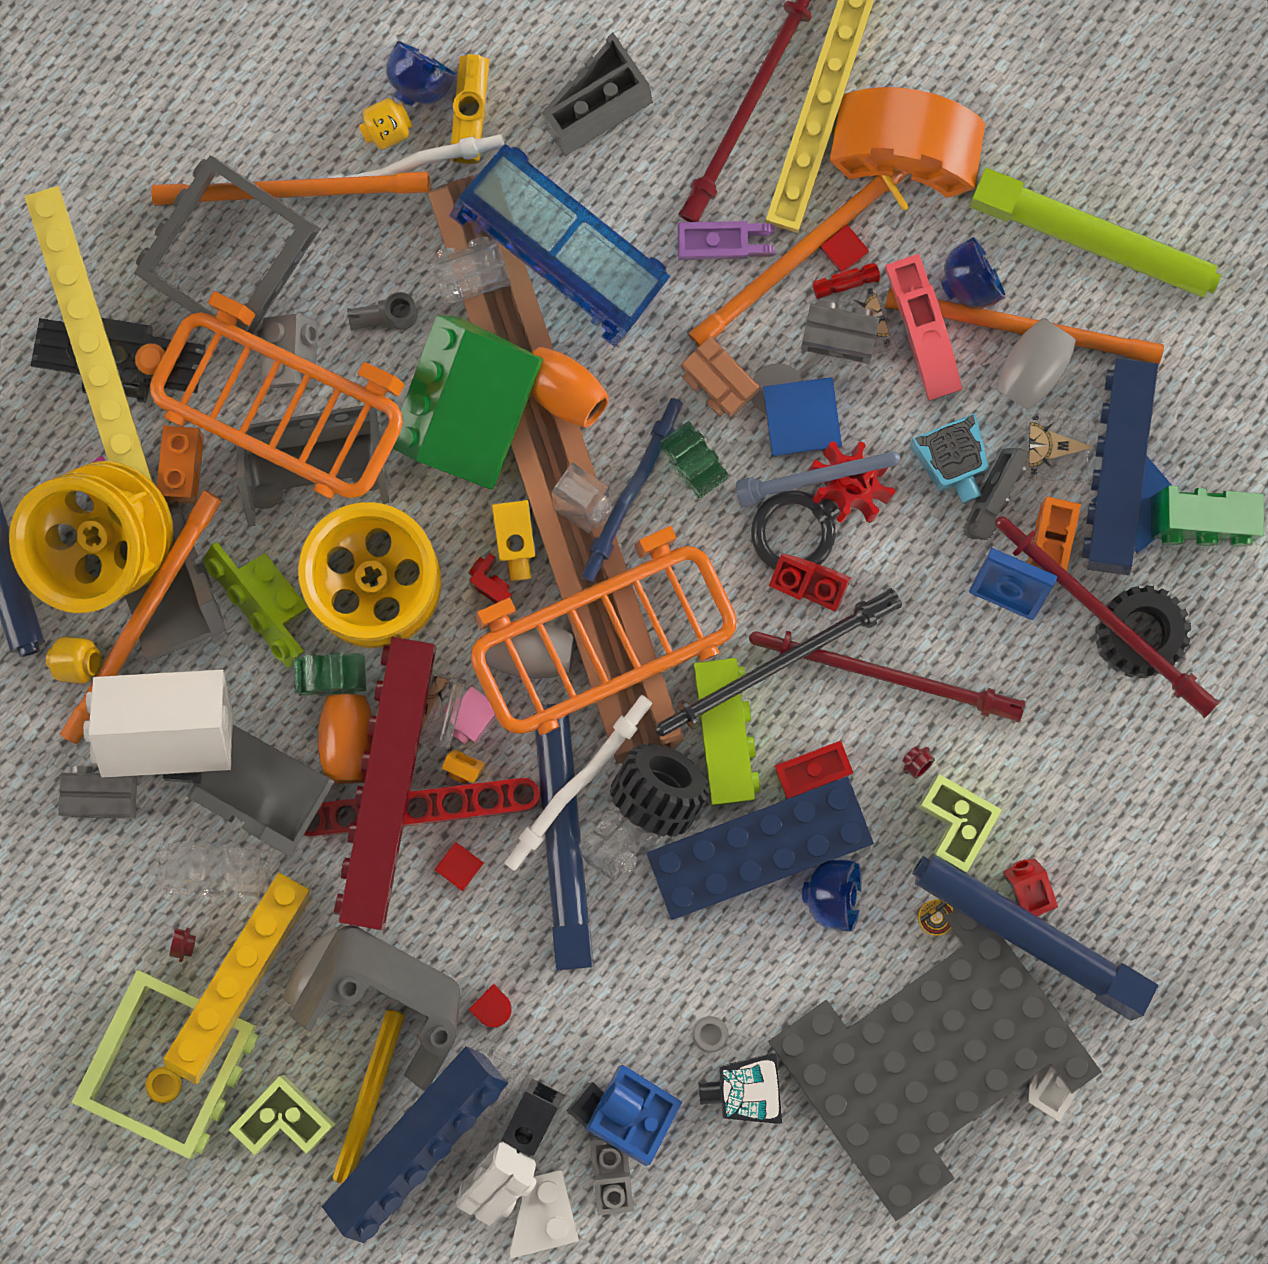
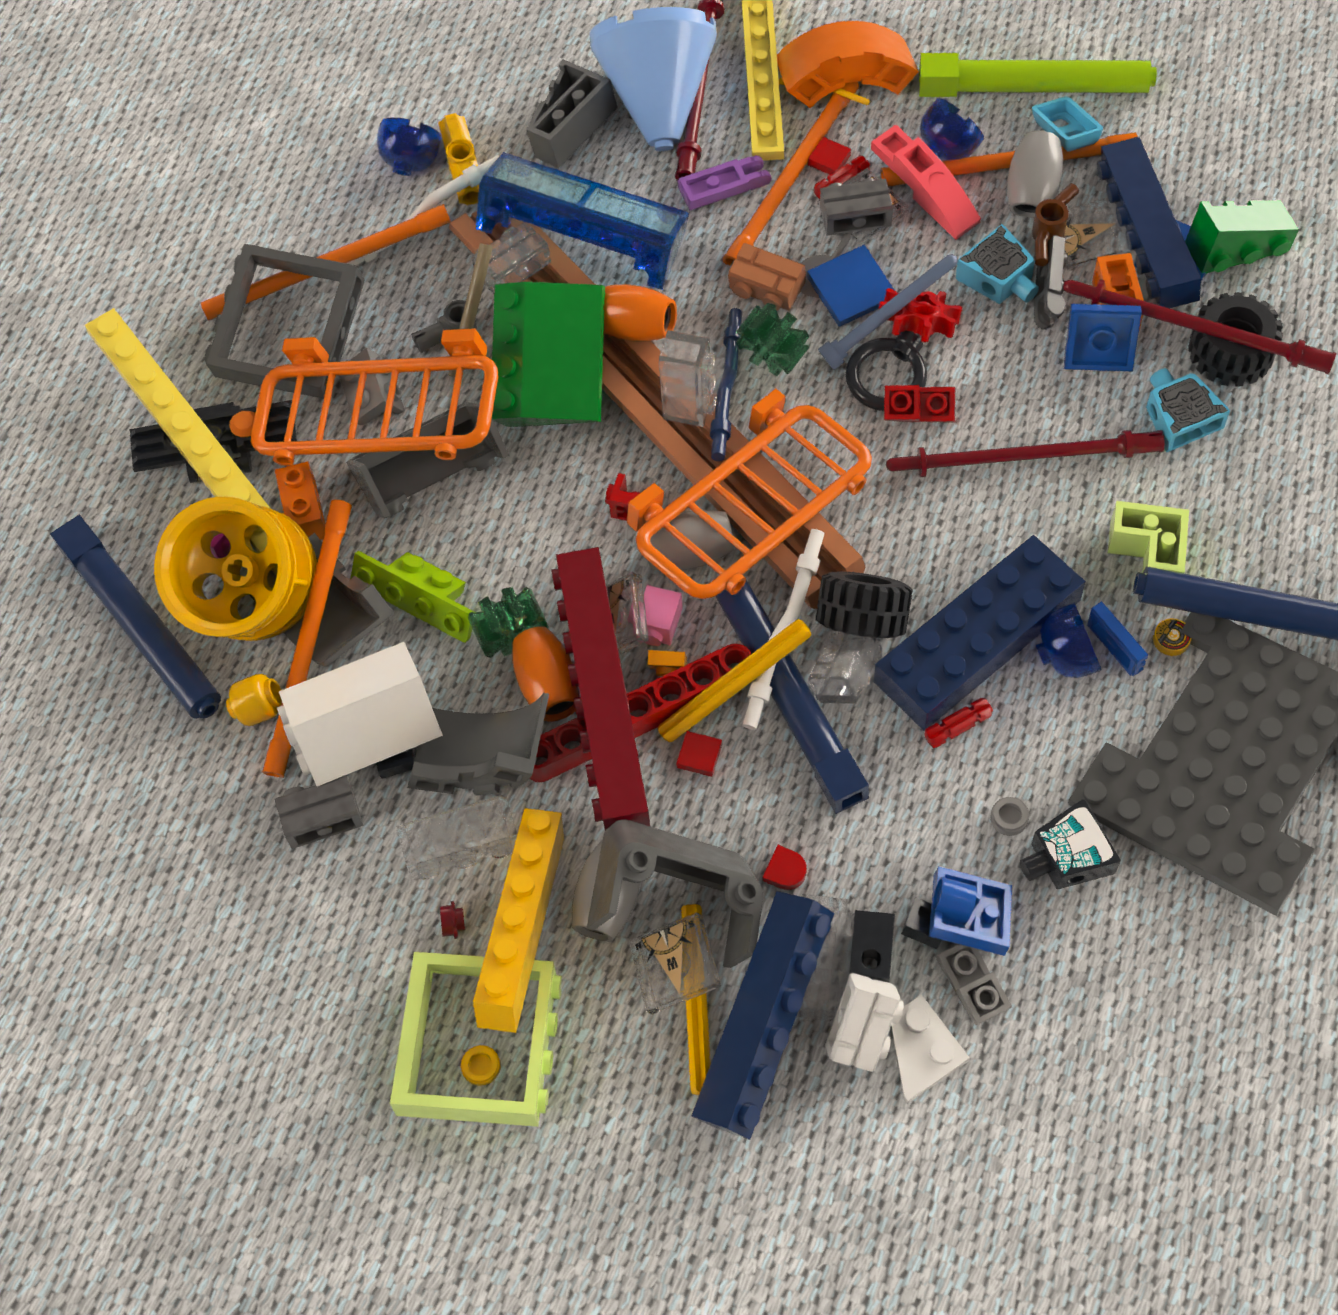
camera: 15 degrees left, 20 degrees down
(284, 1109) = (616, 1034): yellowish green brick -> none
(350, 531) = (520, 548): yellow wheel -> none
(359, 1062) = (674, 963): none -> clear tile
(385, 123) = (392, 190): yellow head -> none
(411, 314) = (475, 290): none -> dark tan bar
(509, 520) = (634, 448): yellow torso -> none
(512, 820) = (734, 680): none -> yellow axle
(701, 91) = (656, 66): none -> light blue cone
(704, 927) = (958, 722): none -> red axle
(725, 736) = (900, 547): lime brick -> none
(813, 769) = (993, 548): red plate -> none
(864, 615) = (982, 412): black bar -> none
(881, 903) = (1117, 639): none -> blue tile
(917, 761) = (1089, 513): dark red plate -> none
(1031, 886) = (1247, 571): red bracket -> none
(1032, 416) = (1051, 220): none -> reddish brown piece
(1057, 686) = (1184, 408): none -> torso
(1112, 313) = (1080, 123): none -> medium azure piece

